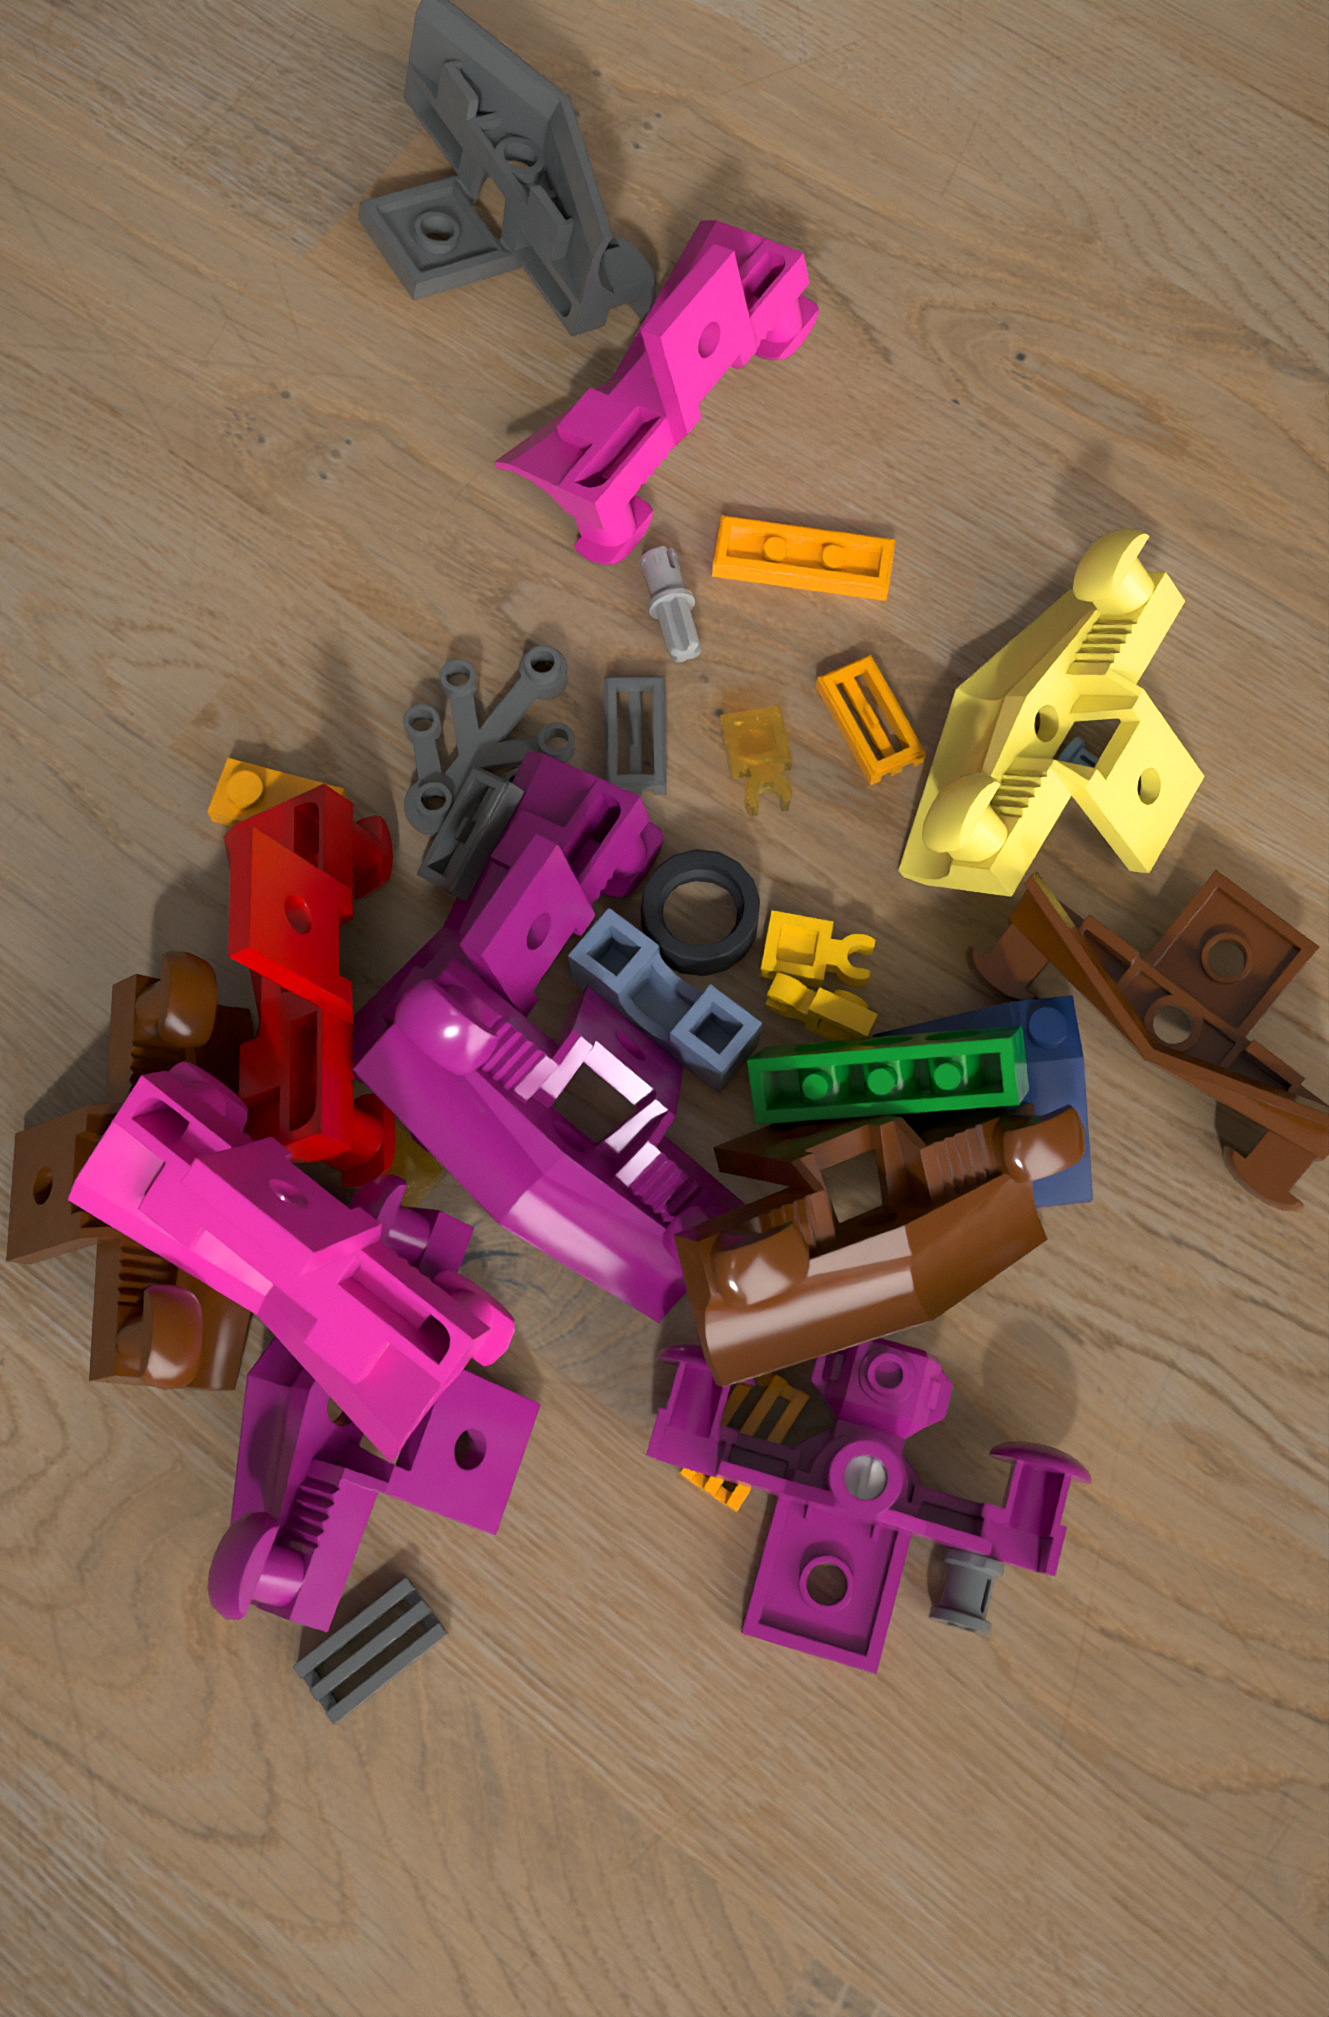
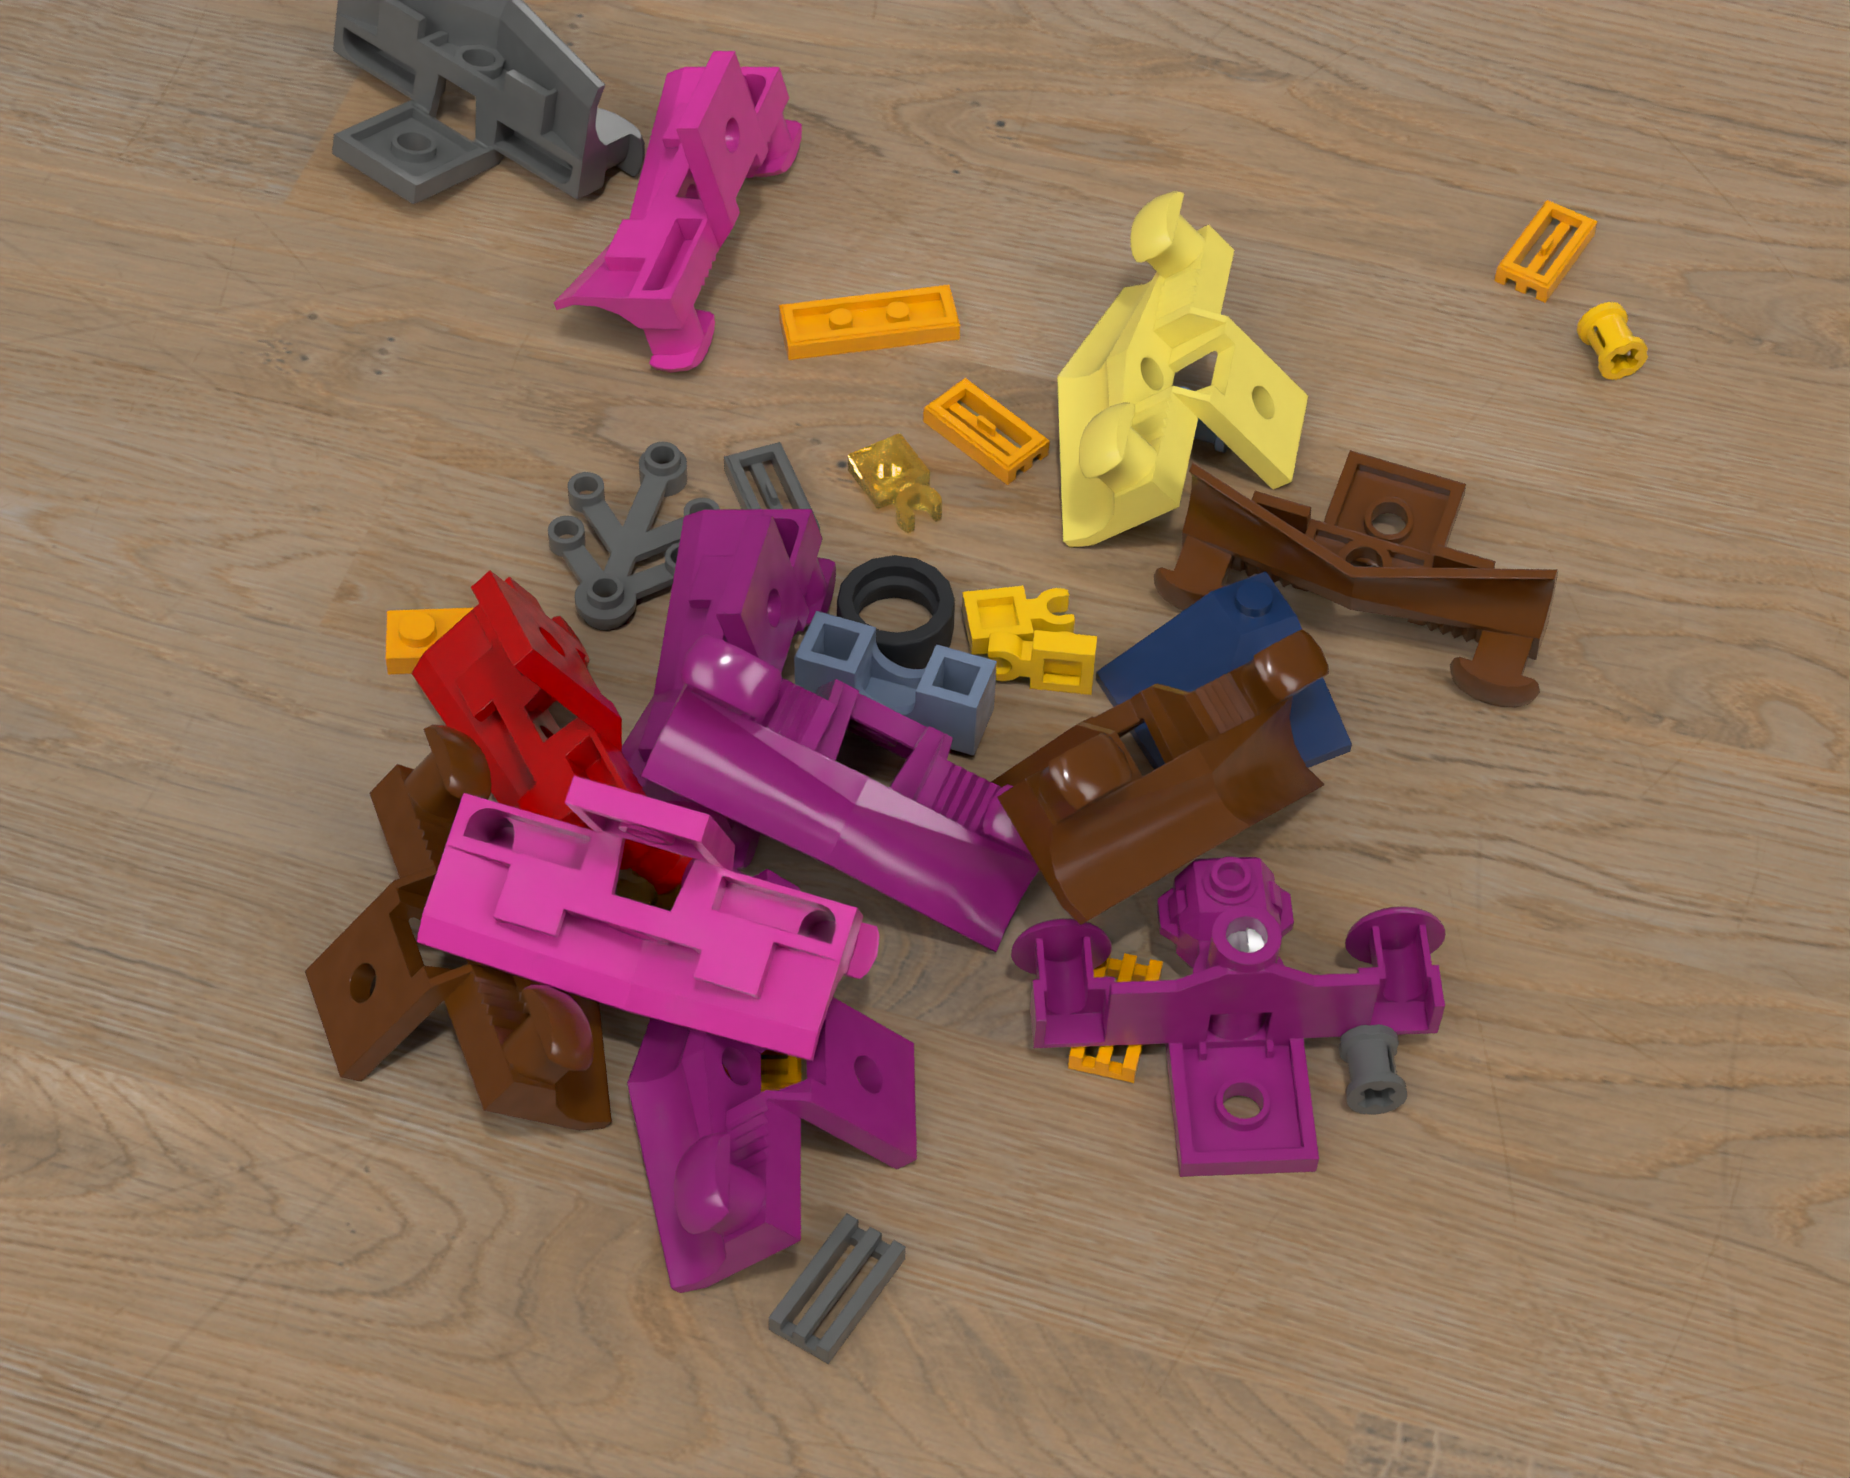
camera: 20 degrees left, 20 degrees down
(470, 833) = (653, 602): dark grey tile -> none
(671, 603) = (762, 383): light grey axle -> none
(889, 1075) = (1161, 650): green brick -> none

